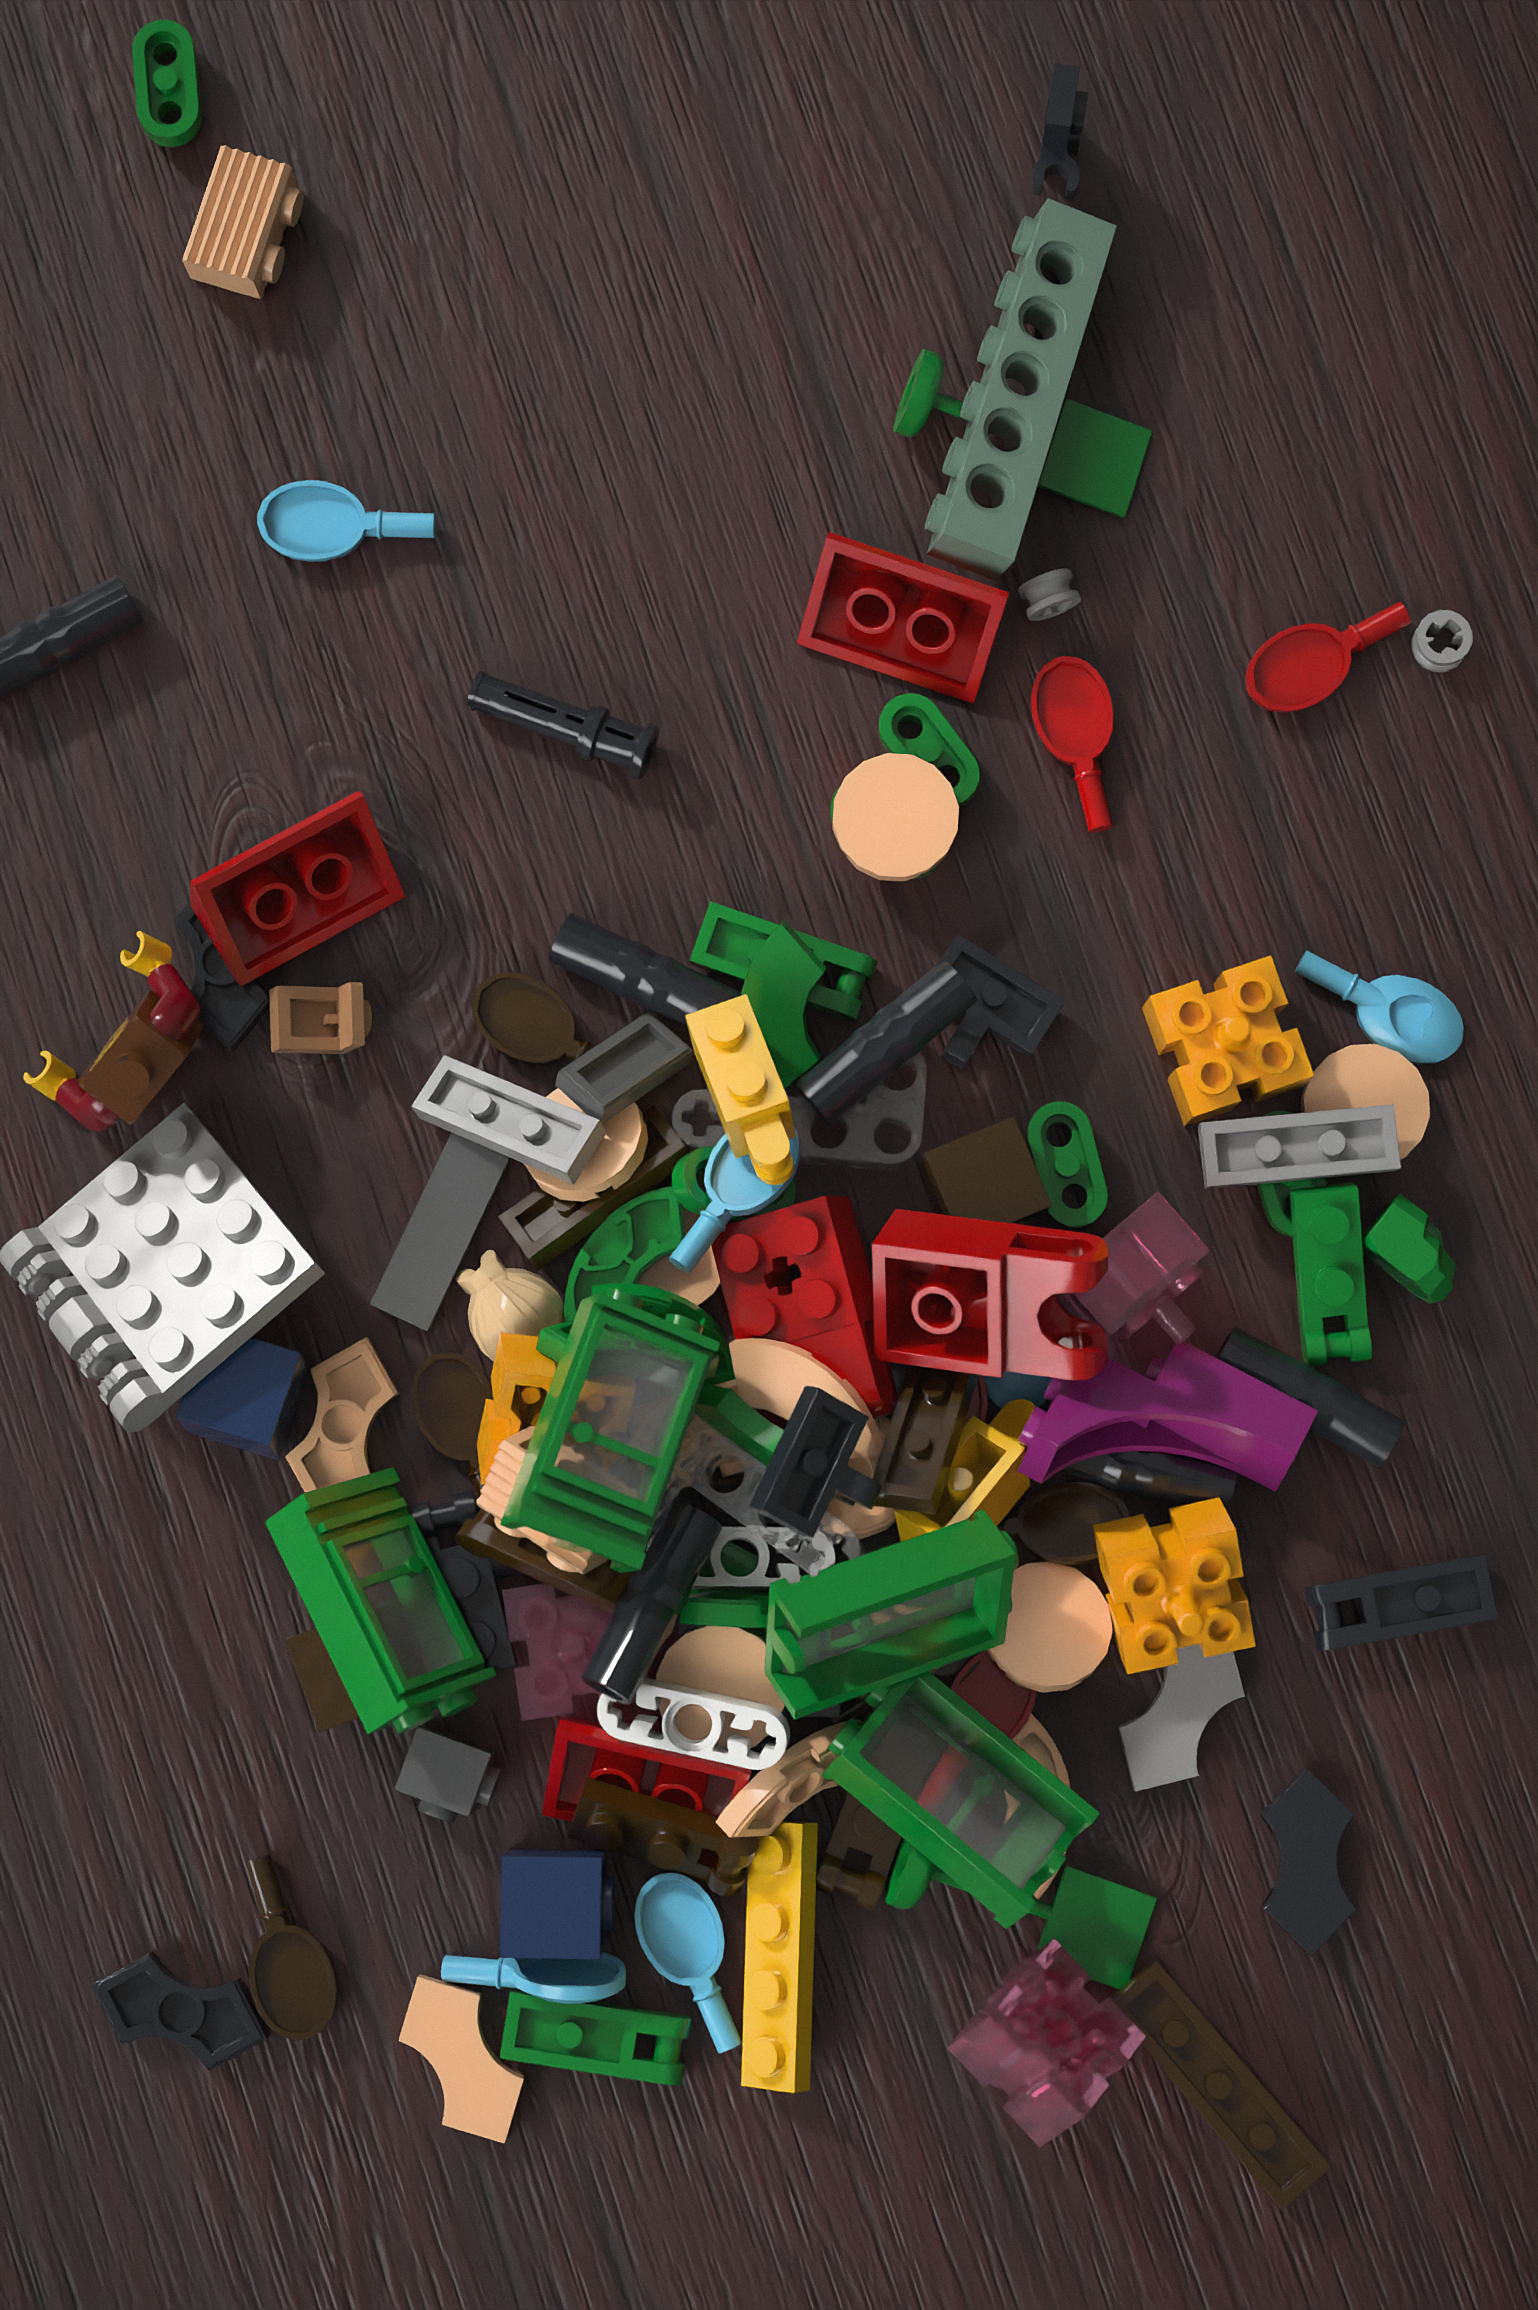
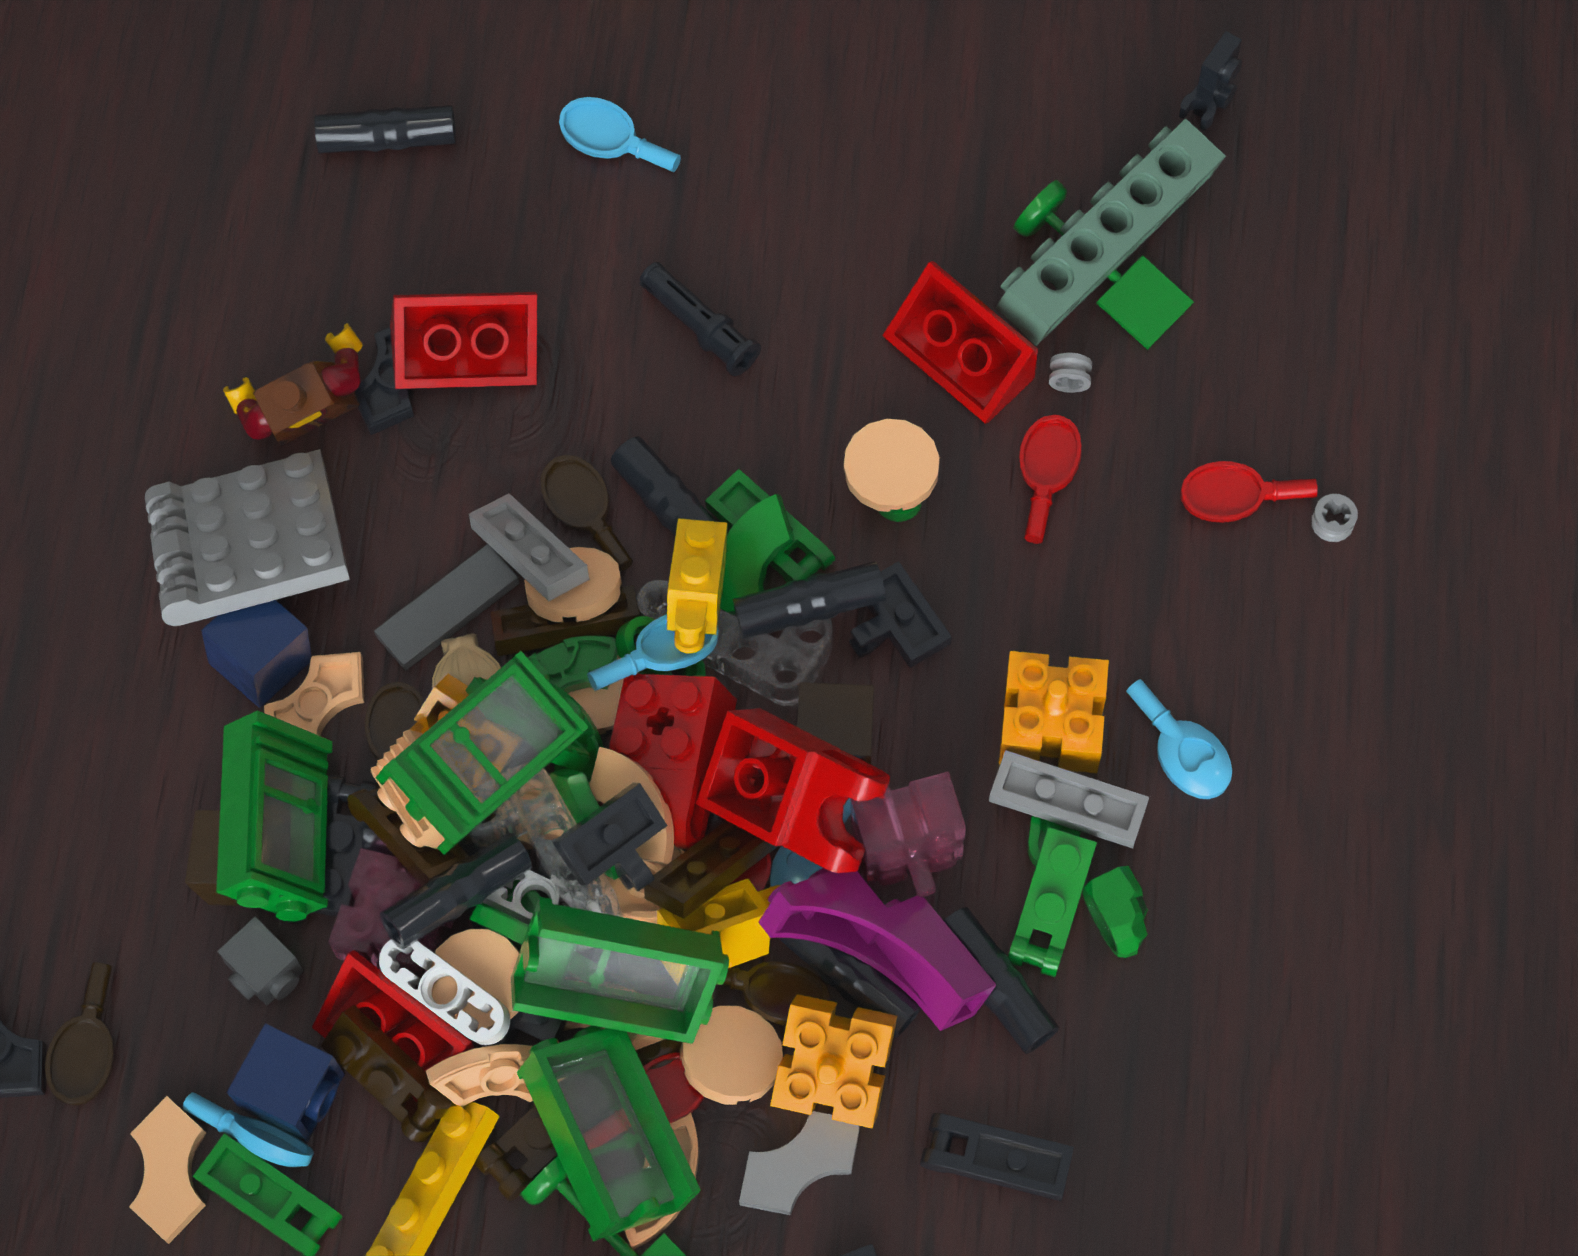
camera: 25 degrees right, 15 degrees down
(319, 1019) = (436, 433): medium nougat bracket -> none
(624, 1067) = (623, 548): dark grey tile -> none
(686, 1945) = (364, 1161): medium azure piece -> none
(936, 743) = (946, 434): green plate -> none
(1069, 1165) = (900, 750): green plate -> none
(1372, 1077) = (1165, 796): light nougat tile -> none

